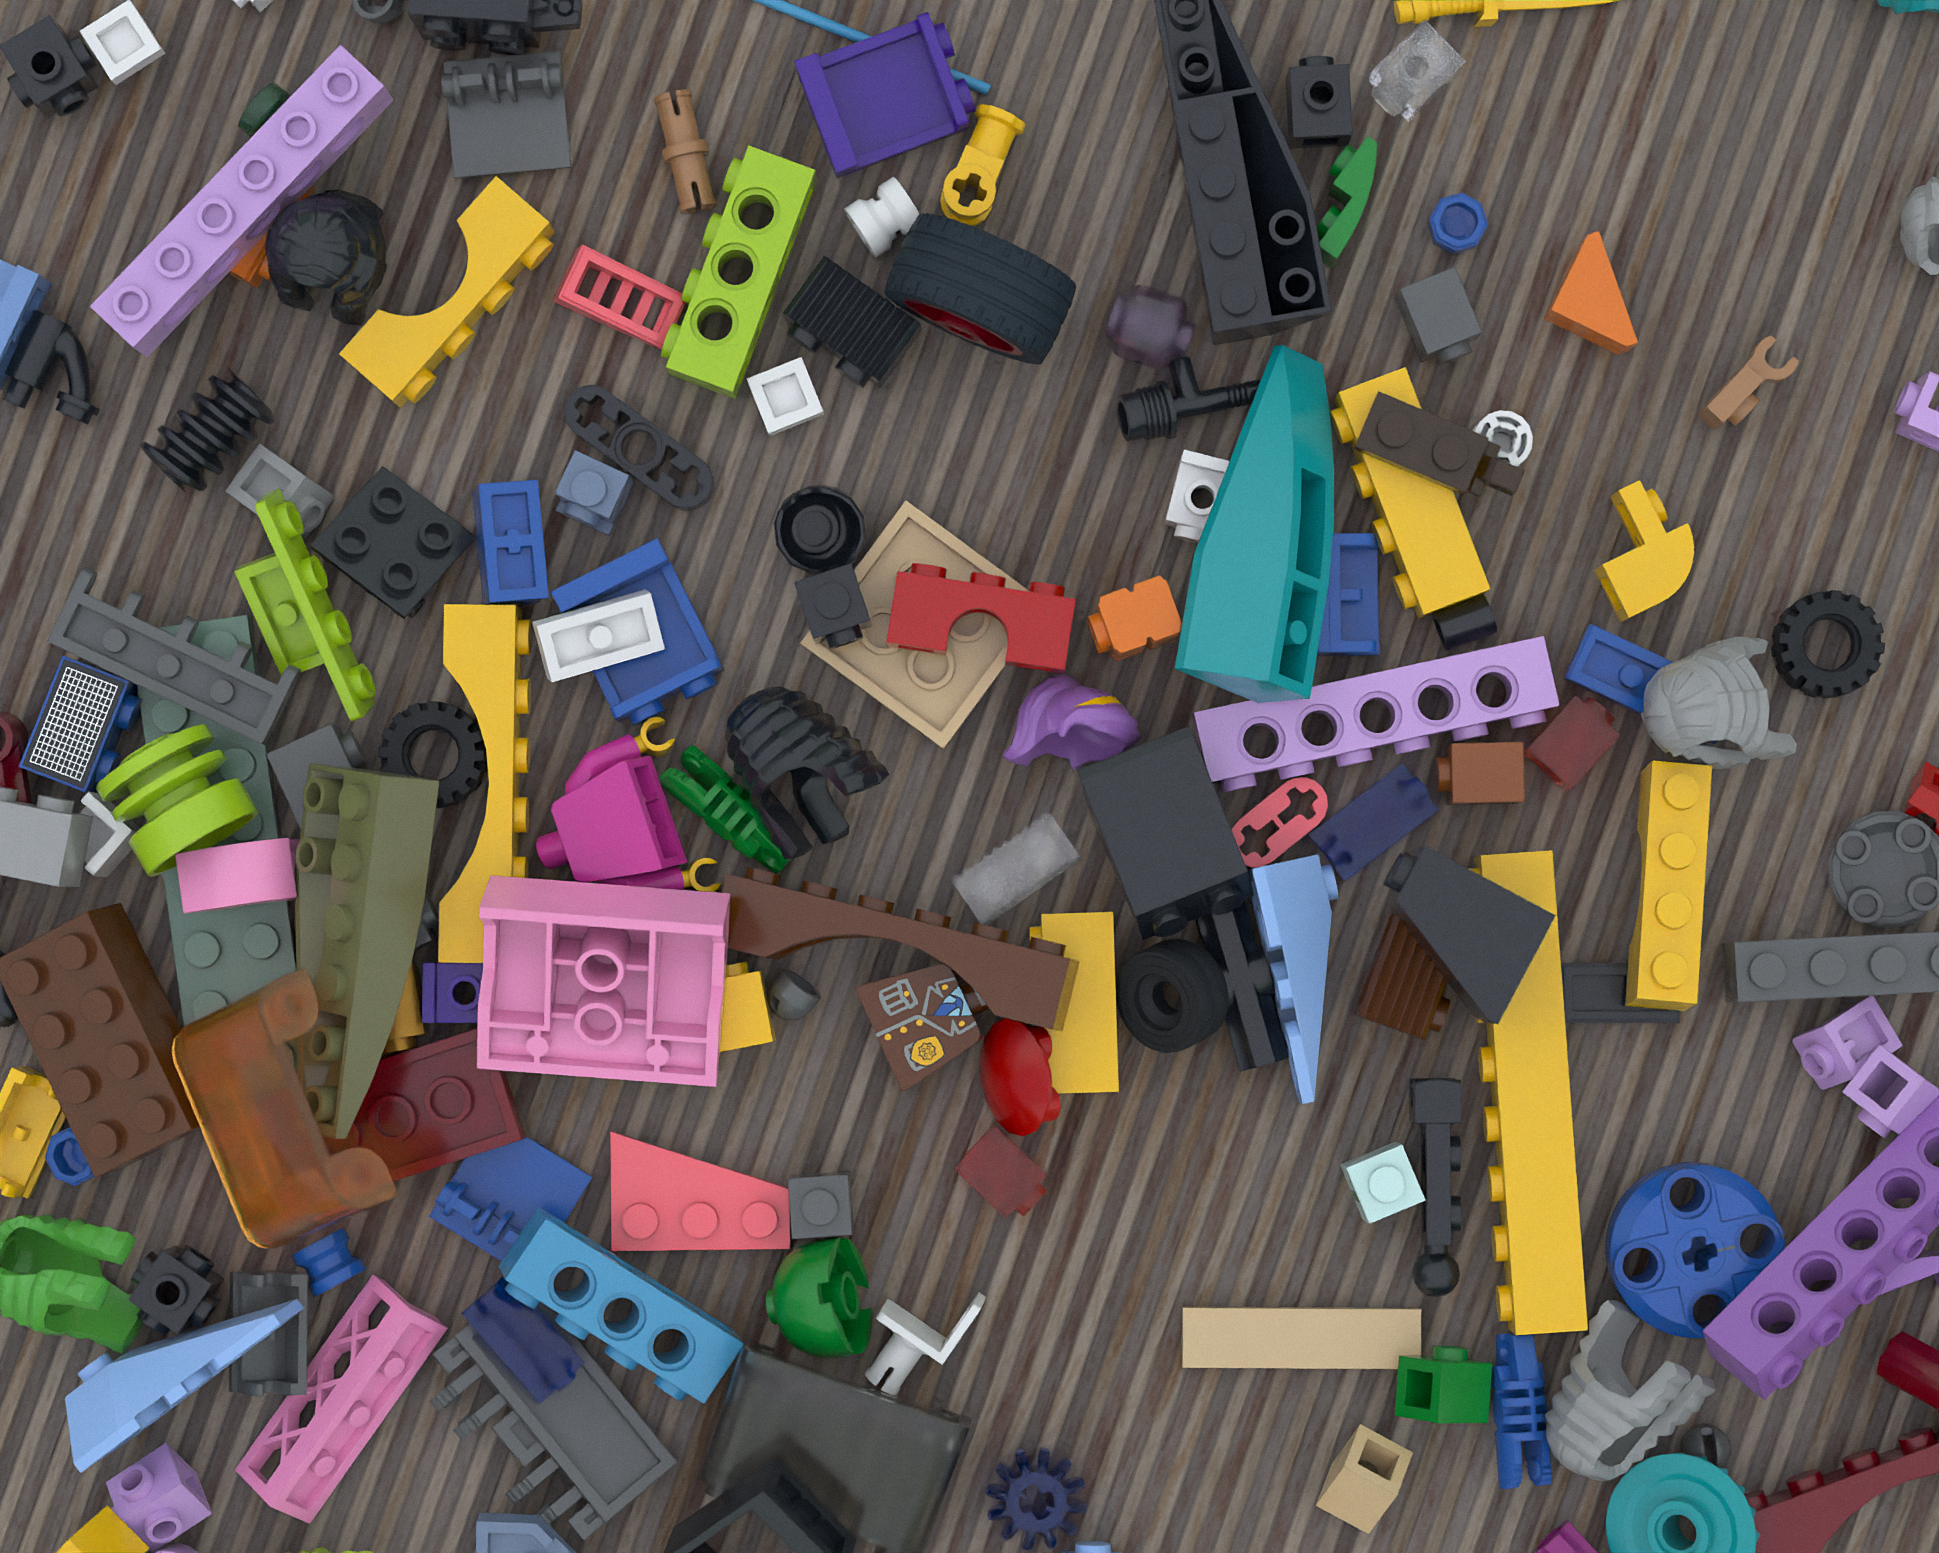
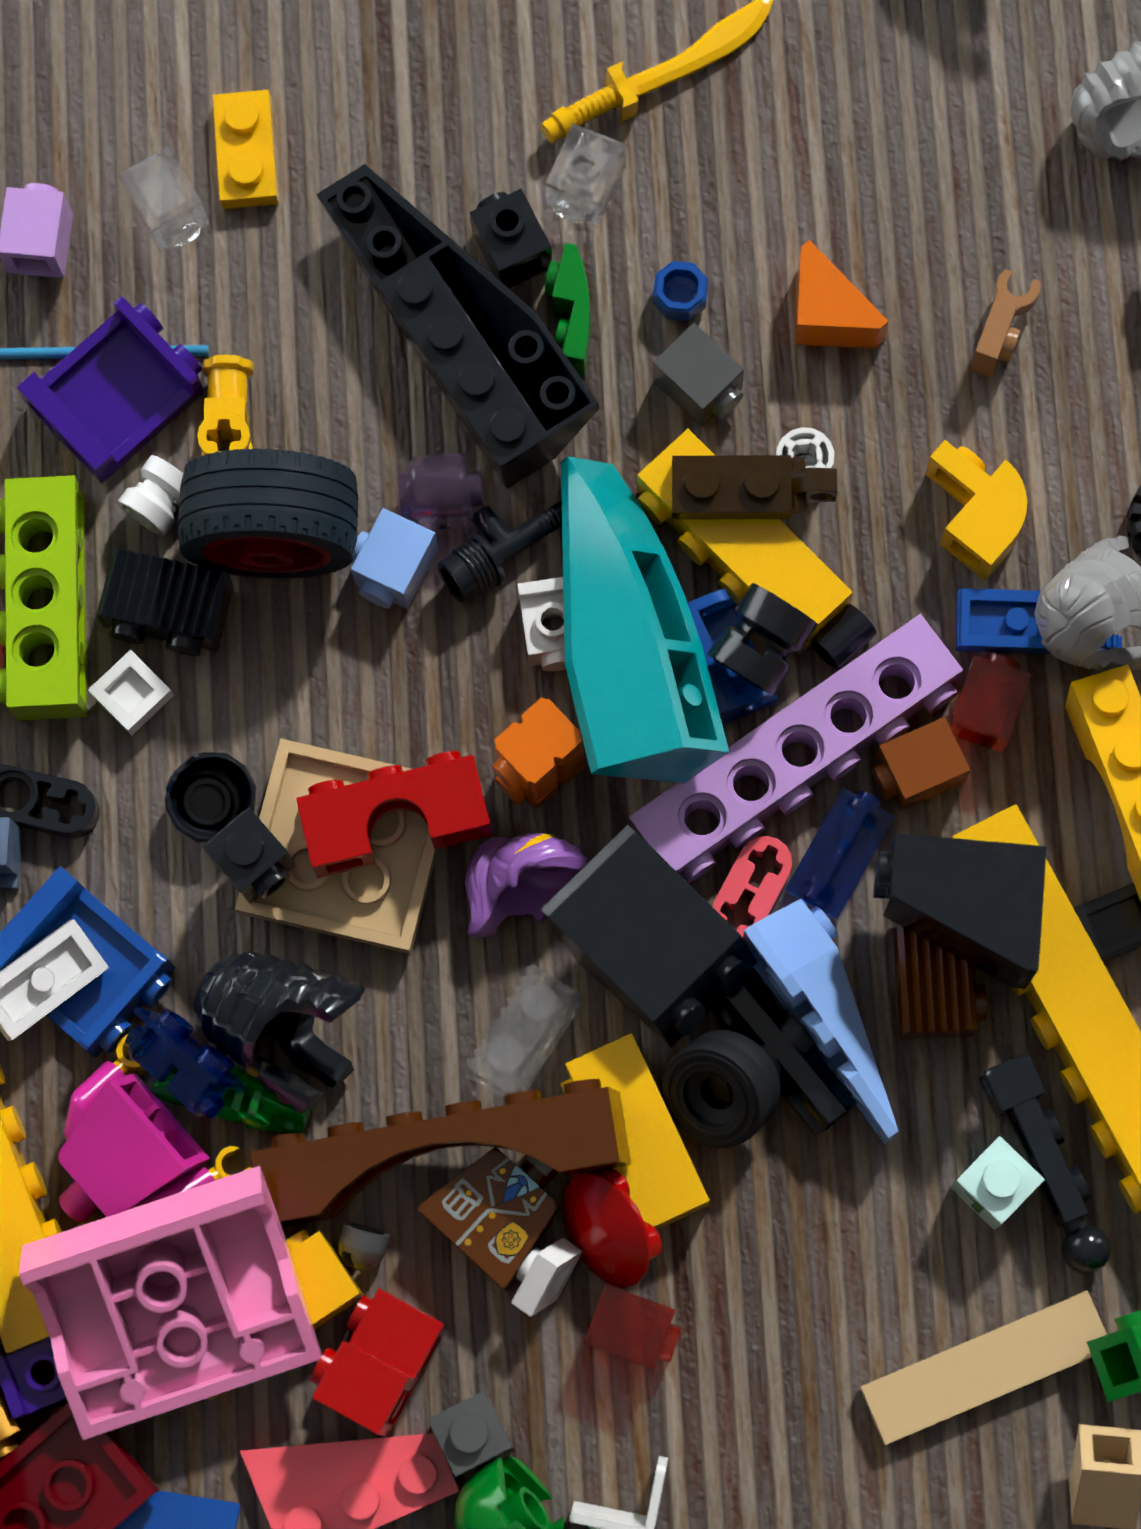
camera: 20 degrees left, 10 degrees down
(691, 745) = (202, 1071): none -> clear blue hinge
(766, 1109) = (380, 1364): none -> red brick
(944, 1093) = (545, 1275): none -> white plate
(1078, 373) = (393, 560): none -> light blue brick
(1404, 592) = (774, 621): none -> black wheel

